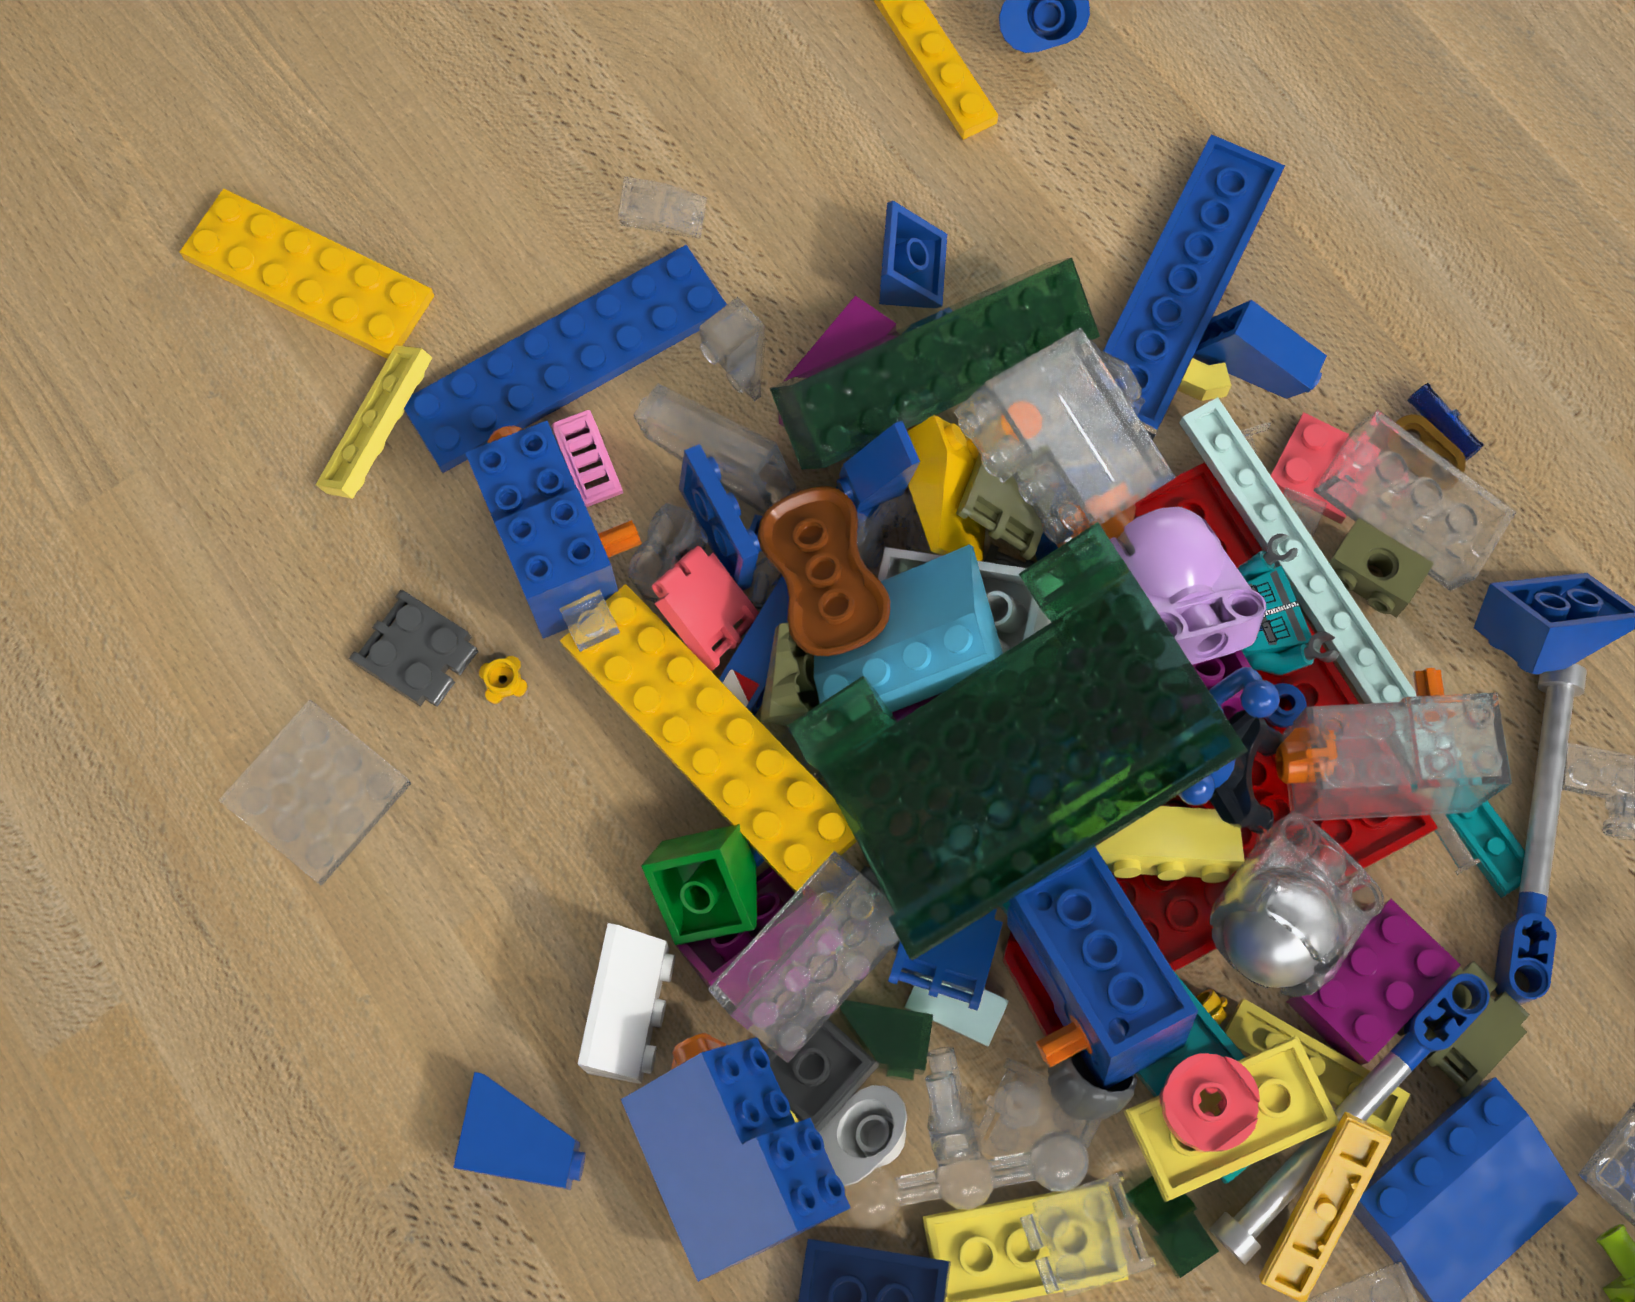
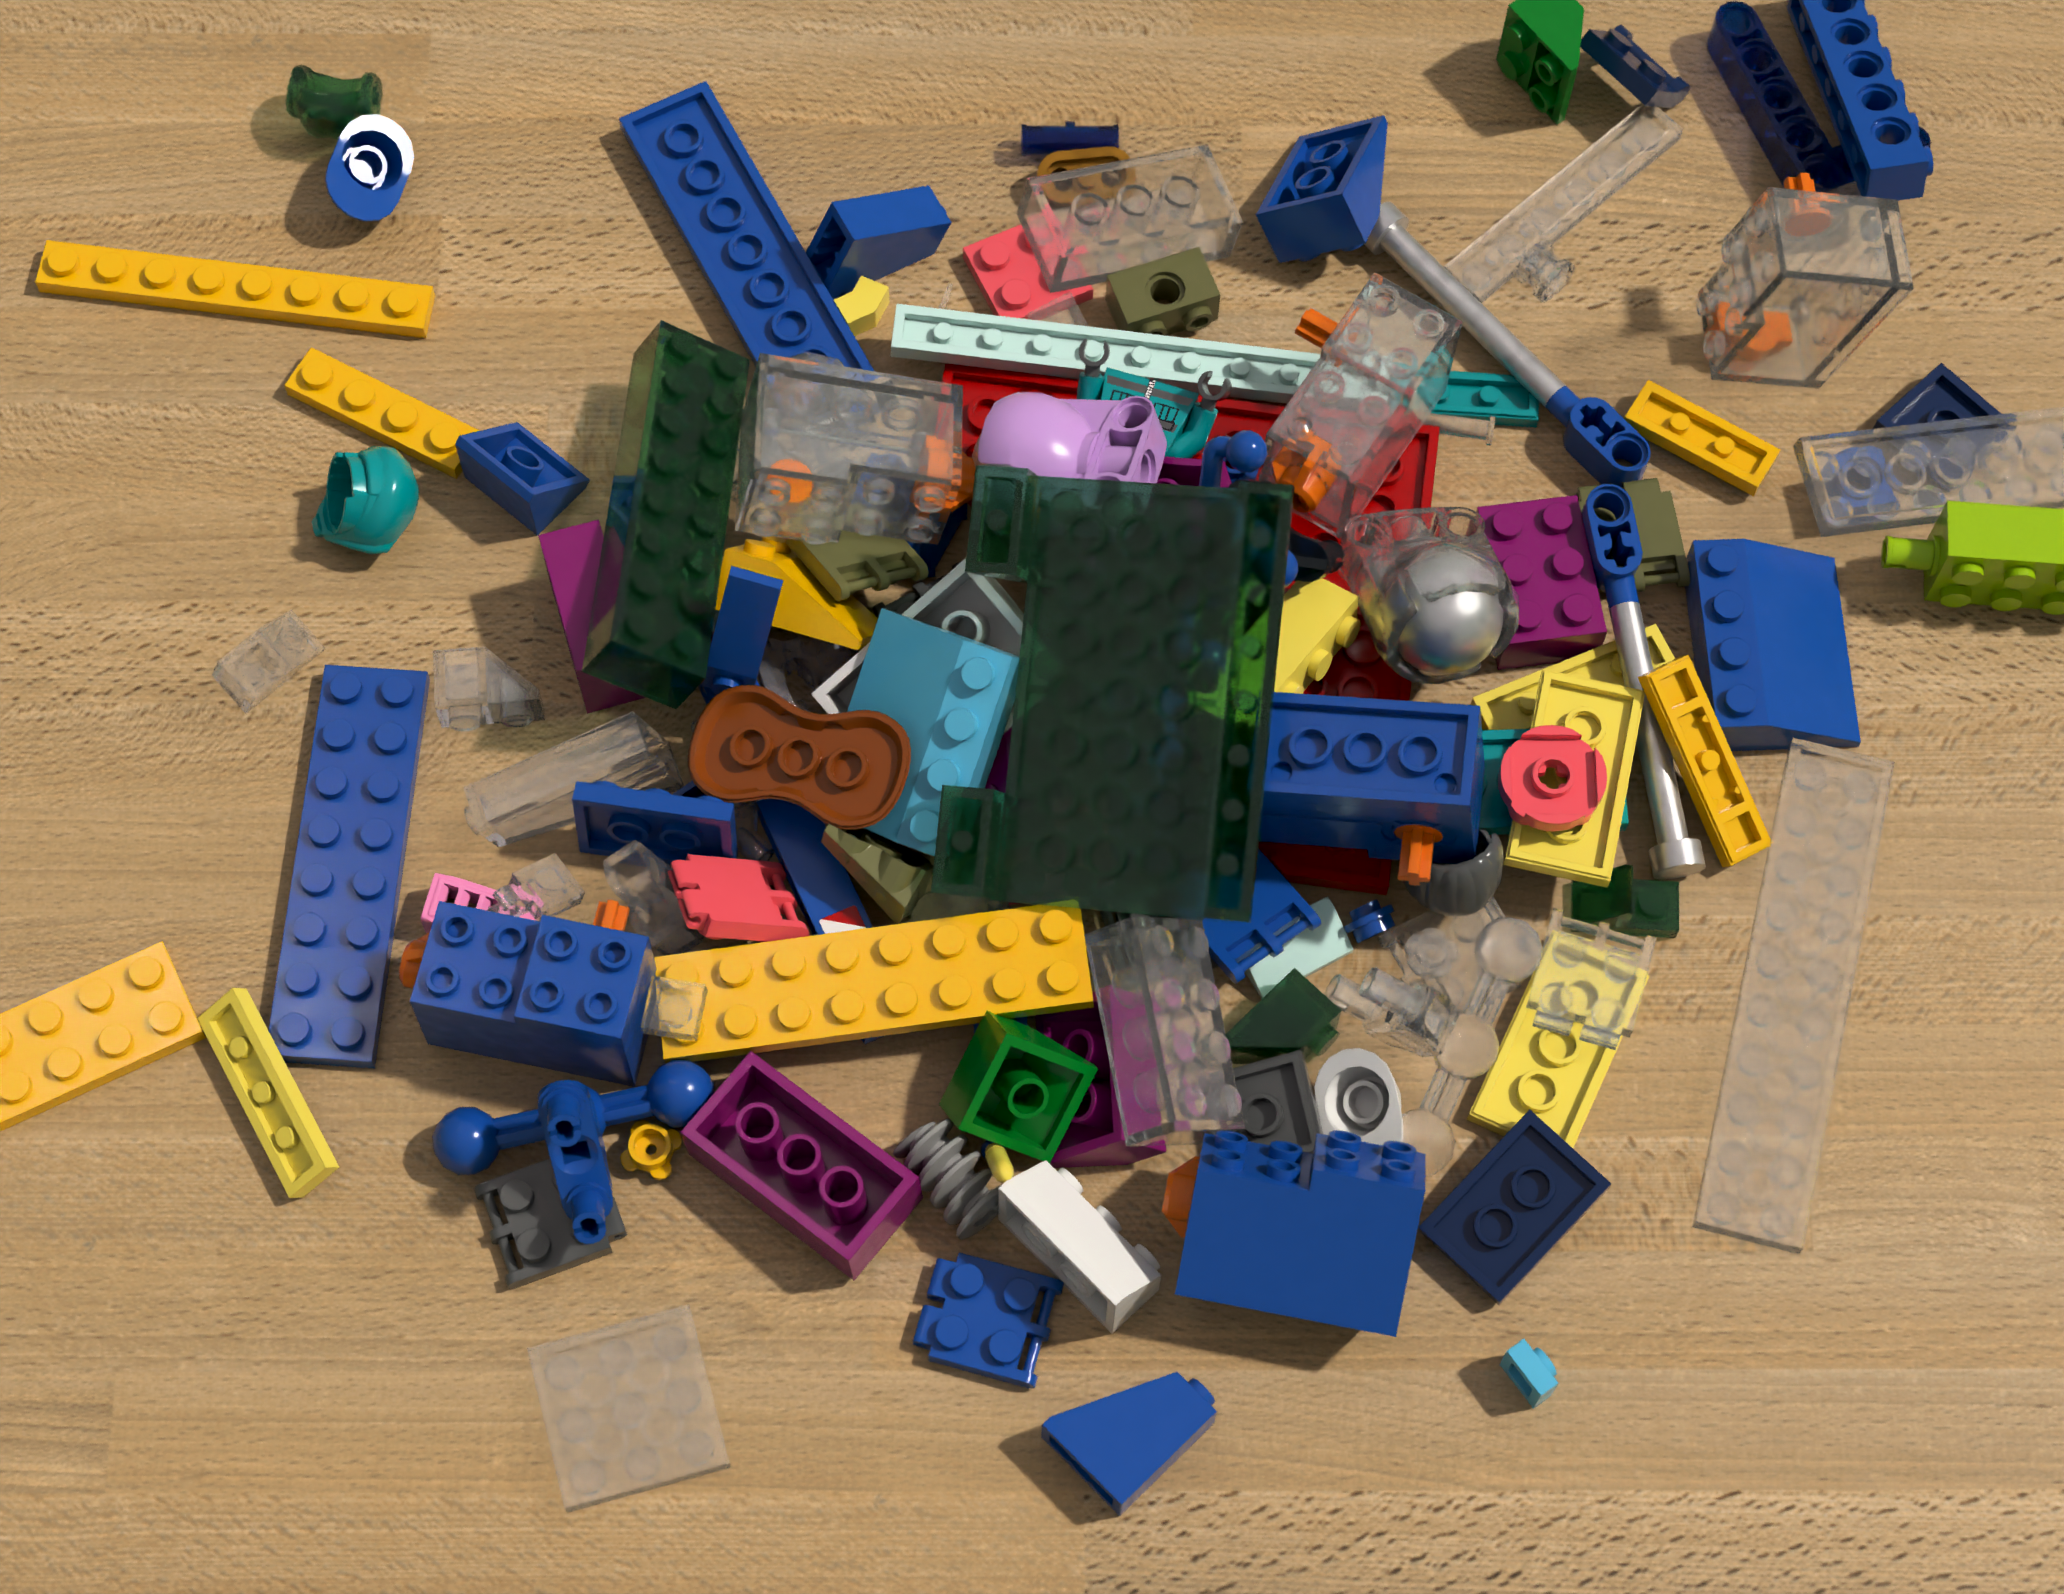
camera: 55 degrees left, 5 degrees down
(464, 618) = (572, 1124): none -> blue connector
(536, 980) = (986, 1318): none -> blue plate
(552, 783) = (802, 1165): none -> magenta brick
(615, 886) = (950, 1176): none -> light grey piece
(629, 482) = (539, 889): none -> clear plate
(636, 911) = (997, 1160): none -> light yellow piece
(815, 186) = (367, 500): none -> teal helmet
(887, 146) = (378, 410): none -> yellow plate
(1015, 1043) = (1370, 920): none -> blue plate
(1591, 1025) = (1701, 438): none -> yellow plate

